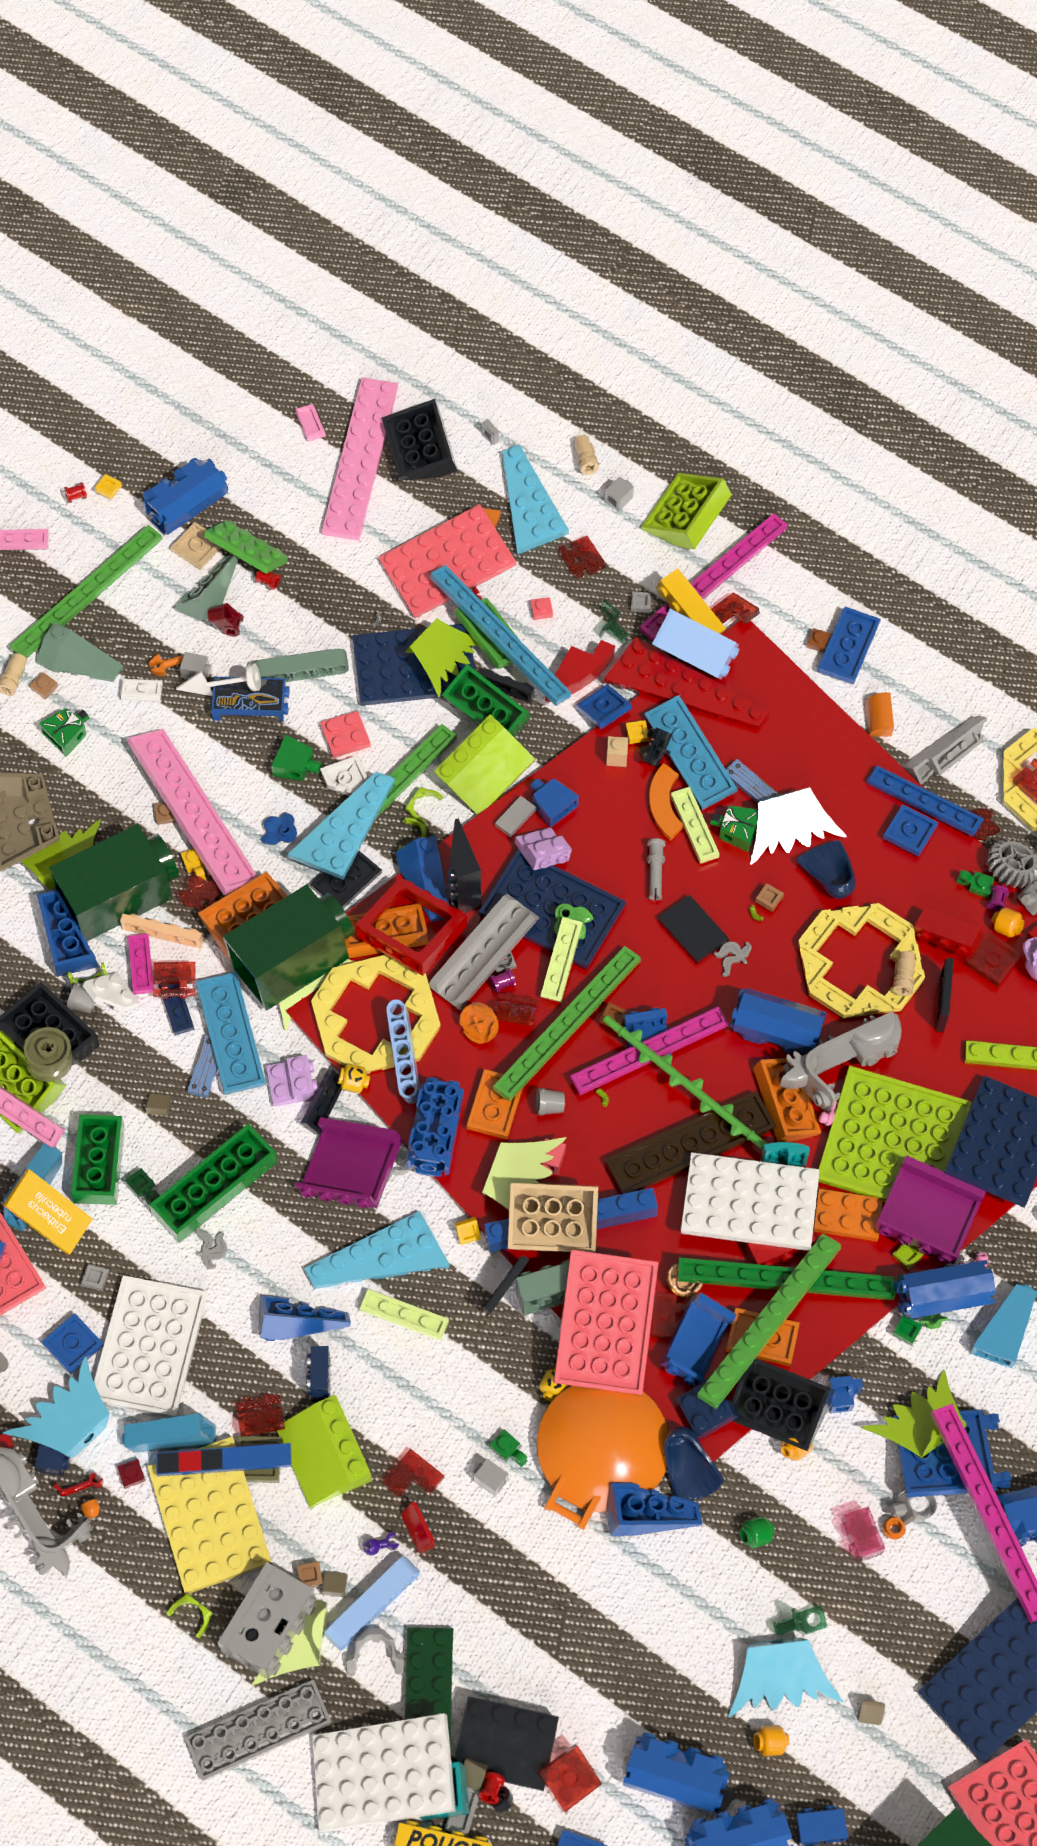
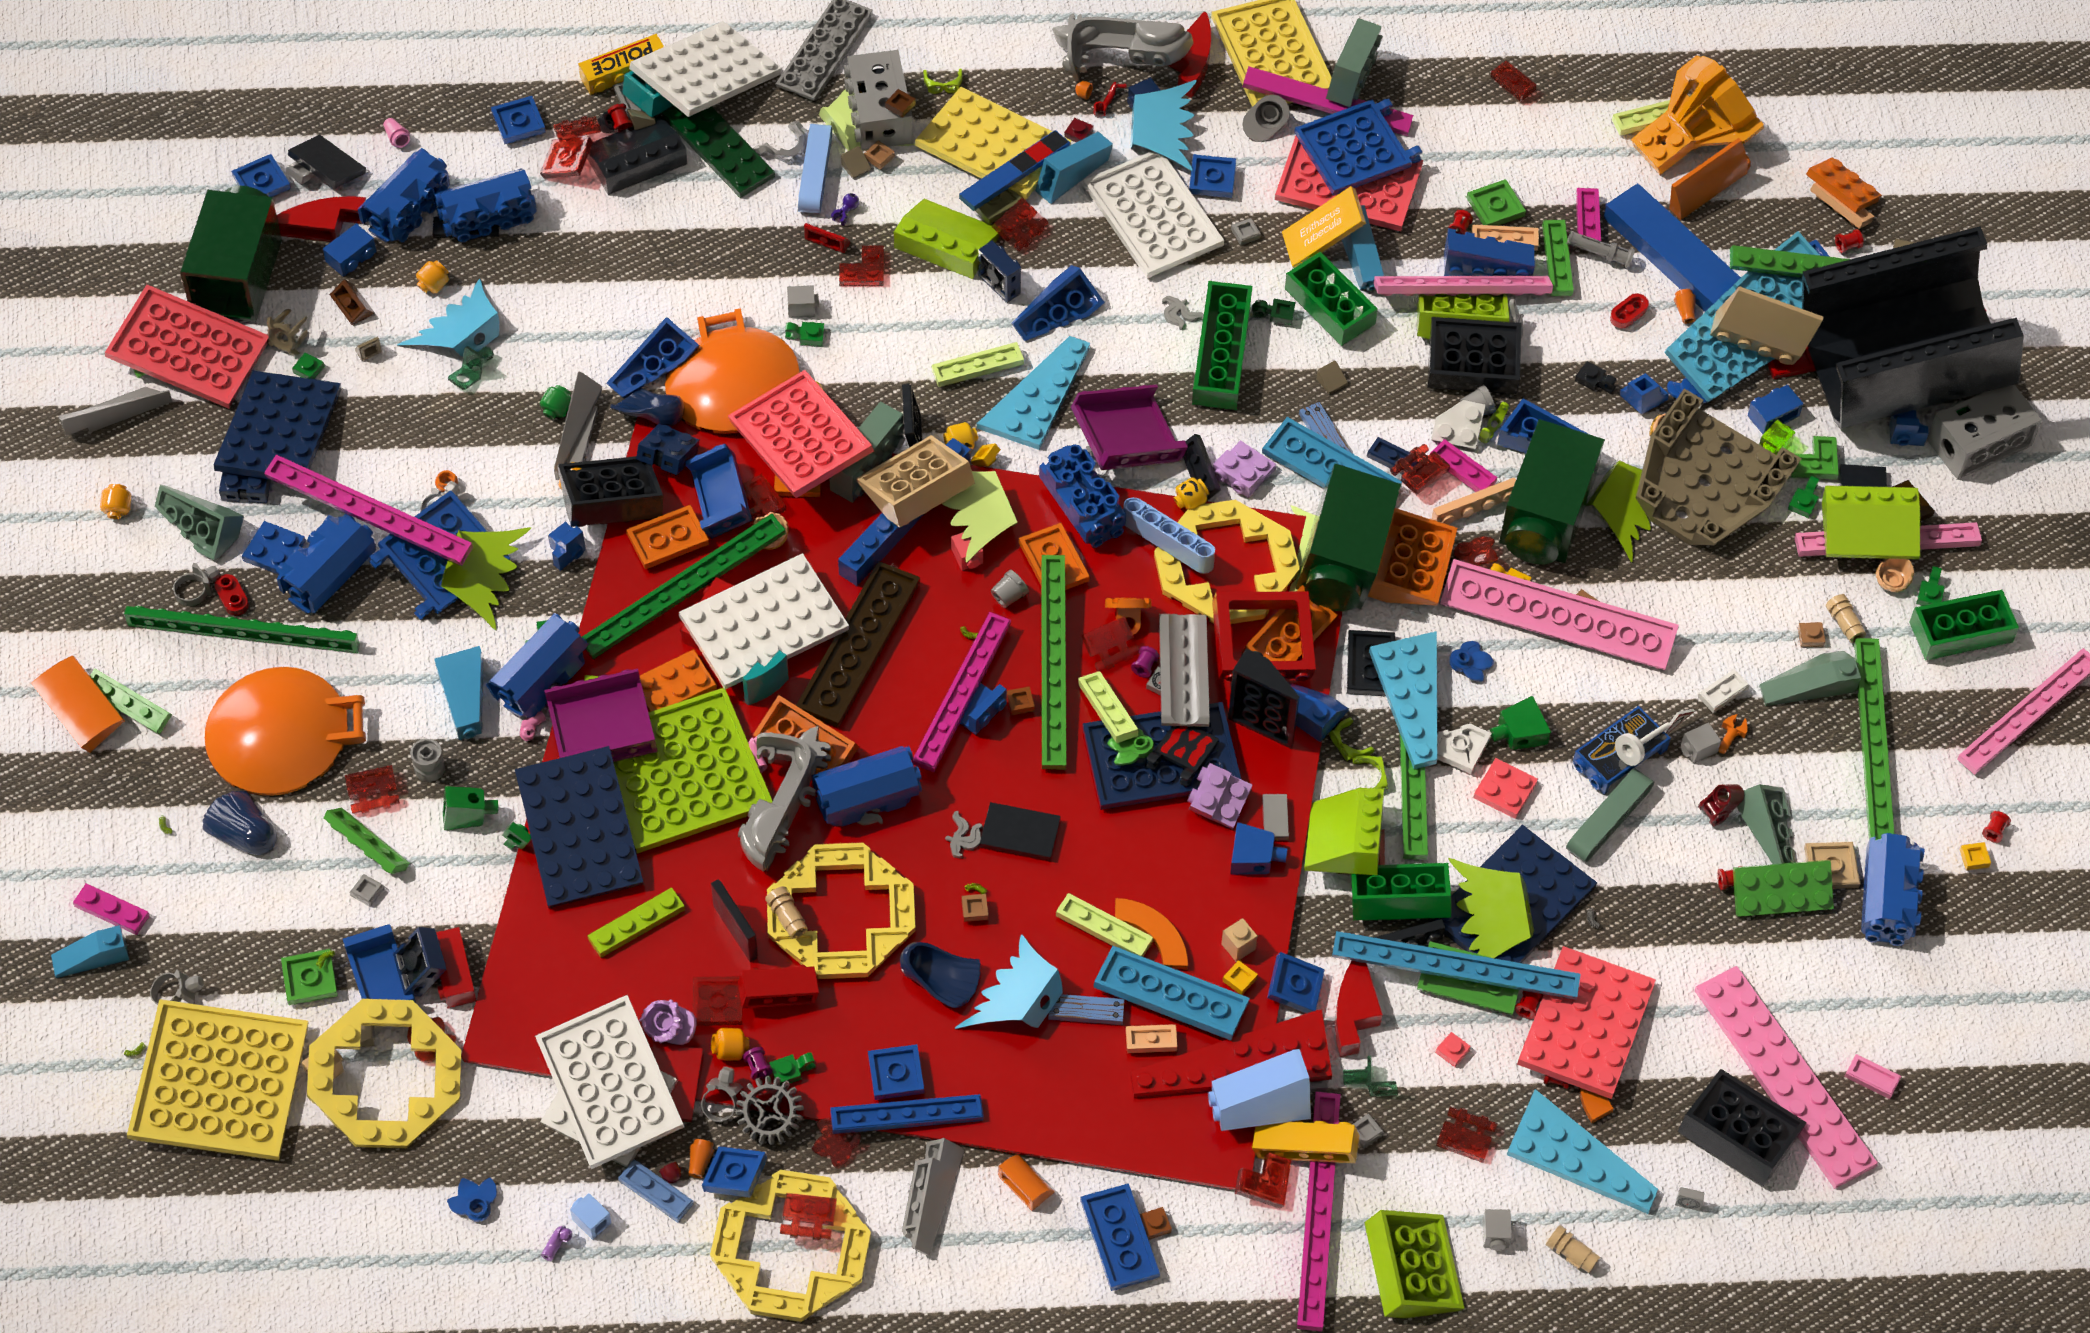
camera: 140 degrees right, 5 degrees down
(48, 1054) = (1445, 317): olive wheel -> none
(65, 729) = (1744, 604): green torso -> none
(268, 1574) = (900, 103): none -> reddish brown plate
(473, 1260) = (962, 433): none -> yellow head
(537, 893) = (1184, 747): none -> black flag
(538, 1797) = (577, 128): none -> clear red plate
(656, 747) = (1206, 967): black hips -> none
(656, 861) = (1109, 865): light grey pin -> none
(677, 1078) = (892, 680): bright green plant -> none
(728, 735) = (1151, 1038): none -> light nougat plate
(737, 826) = (1064, 950): green torso -> none
(756, 1496) = (579, 421): none -> light grey wedge
(769, 1321) = (667, 534): bright green plate -> none
(852, 1774) = (351, 302): none -> reddish brown slope
(862, 1534) = (468, 456): clear pink brick -> none
(933, 1733) = (308, 366): none -> green plate
(943, 1780) = (277, 330): none -> dark tan piece

